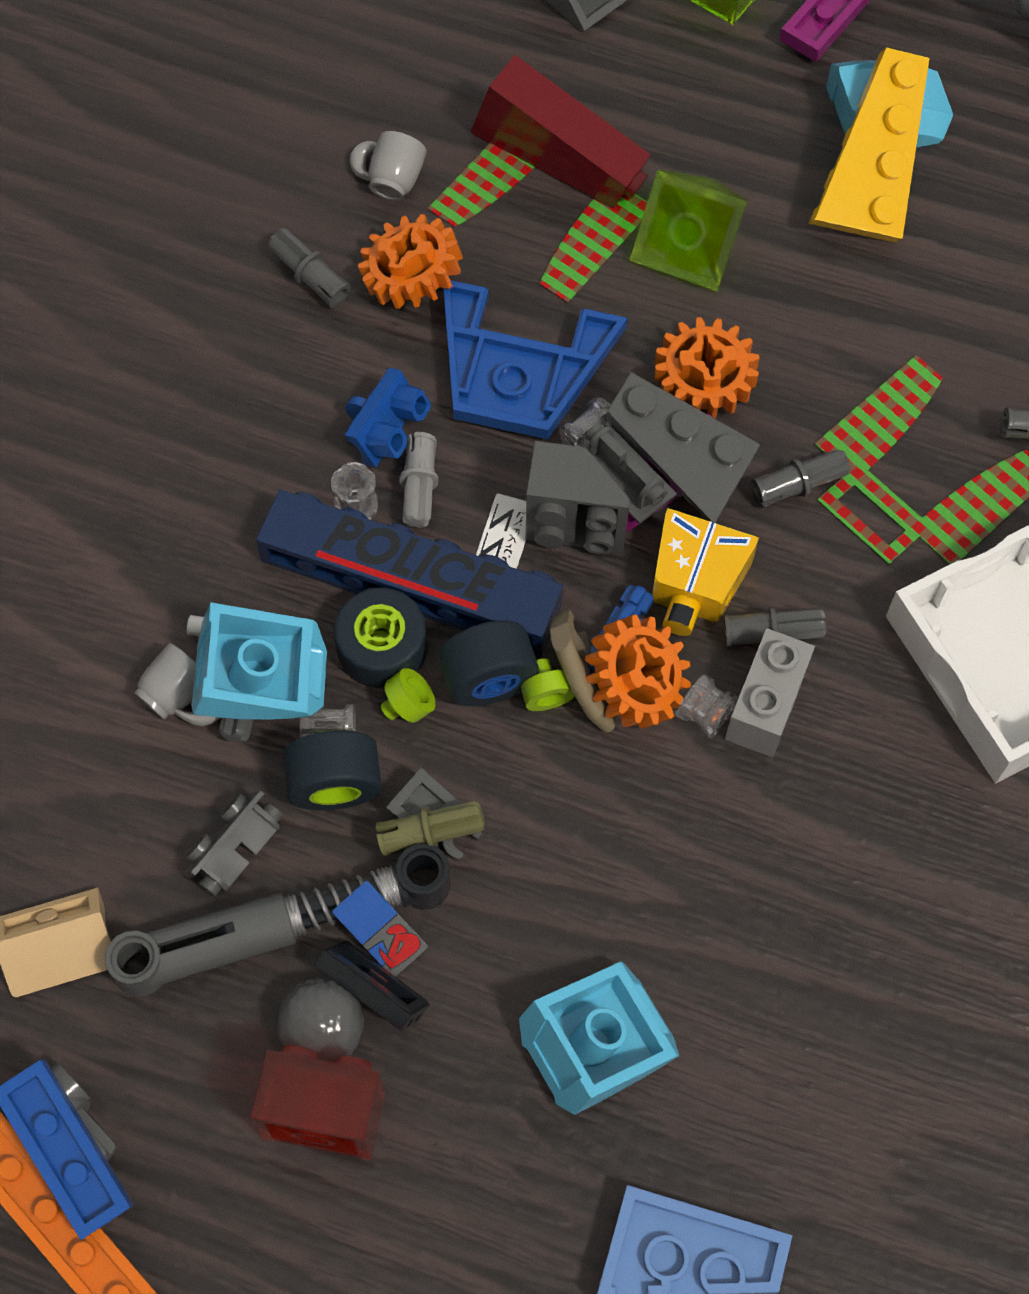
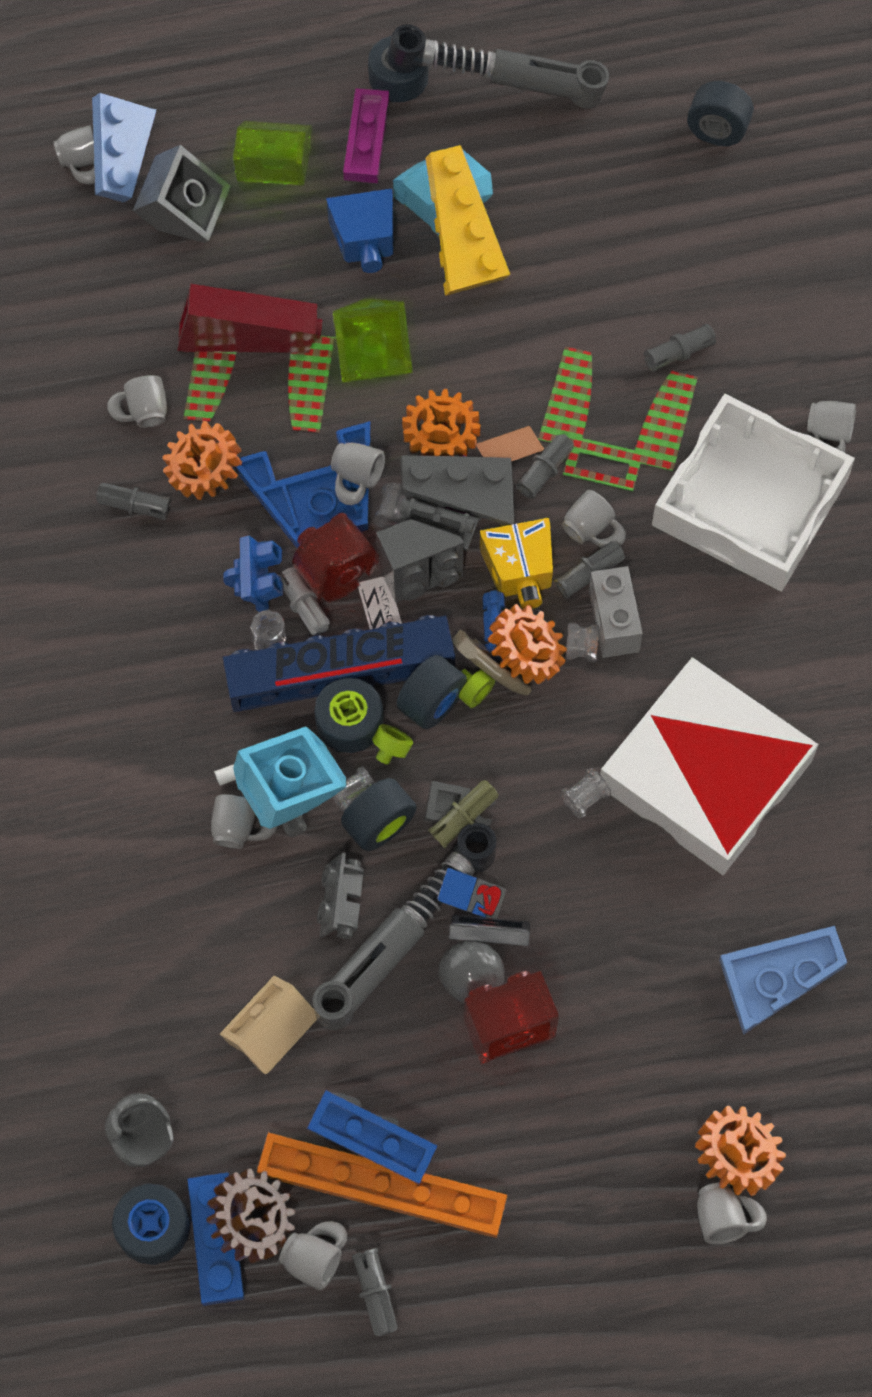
camera: 30 degrees left, 0 degrees up
(479, 447) = (334, 558): none -> clear red brick
(576, 358) = (357, 465): none -> light grey piece
(594, 887) = (585, 792): none -> clear bush
(596, 1037) = (645, 882): medium azure slope -> none
(763, 941) = (707, 765): none -> tile
(767, 100) = (363, 227): none -> blue torso
(777, 433) = (511, 445): none -> nougat sticker
(813, 566) = (589, 518): none -> light grey piece

